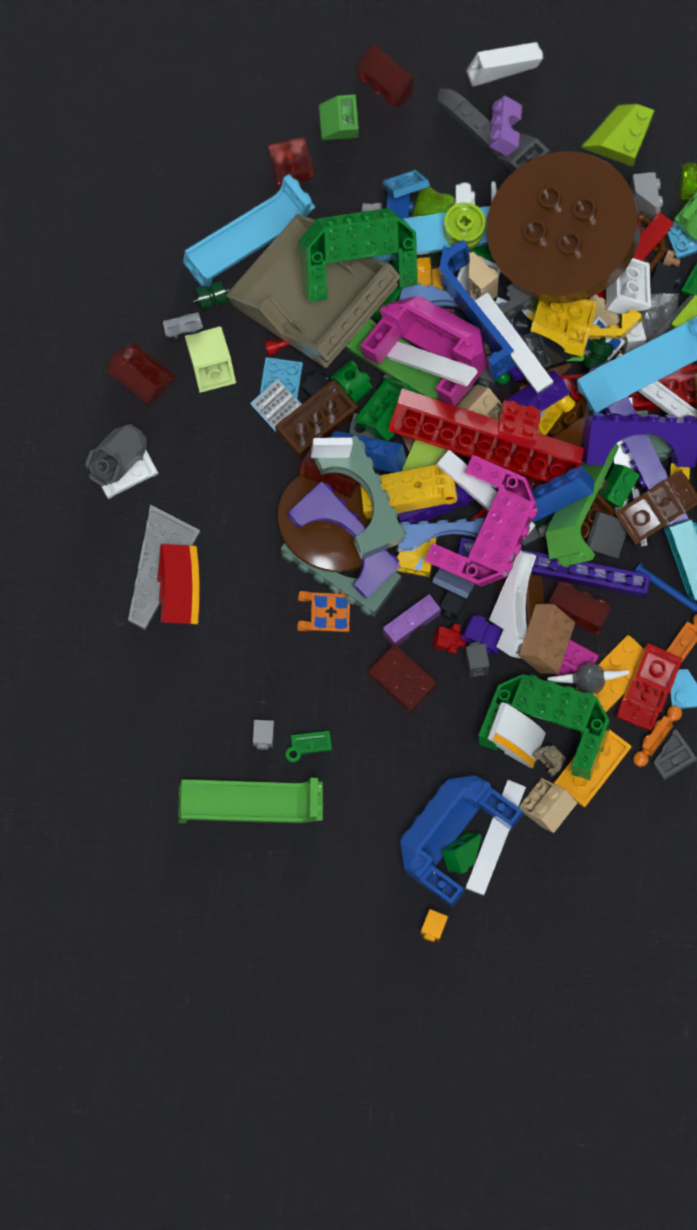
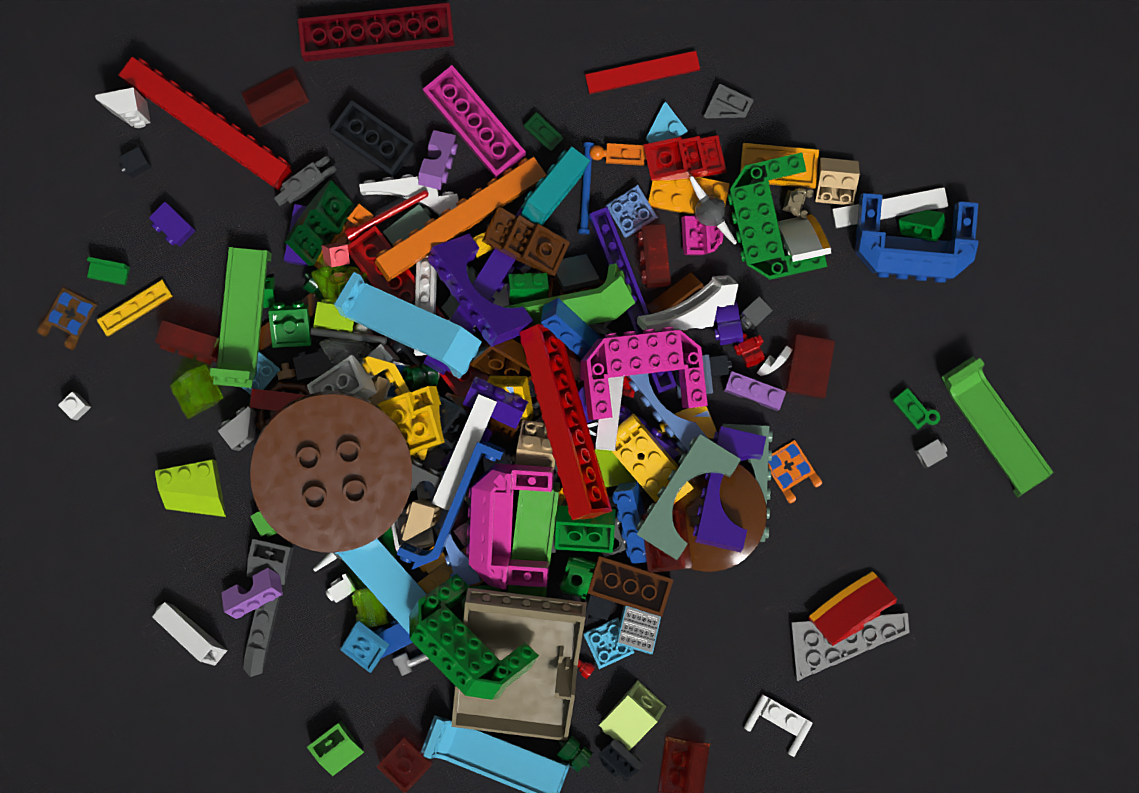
camera: 120 degrees left, 10 degrees up
(116, 454) = (775, 738): dark grey brick -> none
(331, 447) = (669, 544): white tile -> none
(385, 76) = (270, 732): clear red slope -> none
(426, 653) = (772, 364): none -> white slope
(432, 363) = (527, 510): white tile -> none
(433, 926) = (997, 211): light orange brick -> none
(465, 223) = (366, 564): lime wheel -> none
(519, 422) = (536, 399): red plate -> none
(547, 638) = (701, 264): medium nougat brick -> none
(566, 403) = (484, 373): yellow piece -> none
(630, 617) = (631, 211): none -> medium blue tile
(660, 731) = (747, 129): orange plate -> none

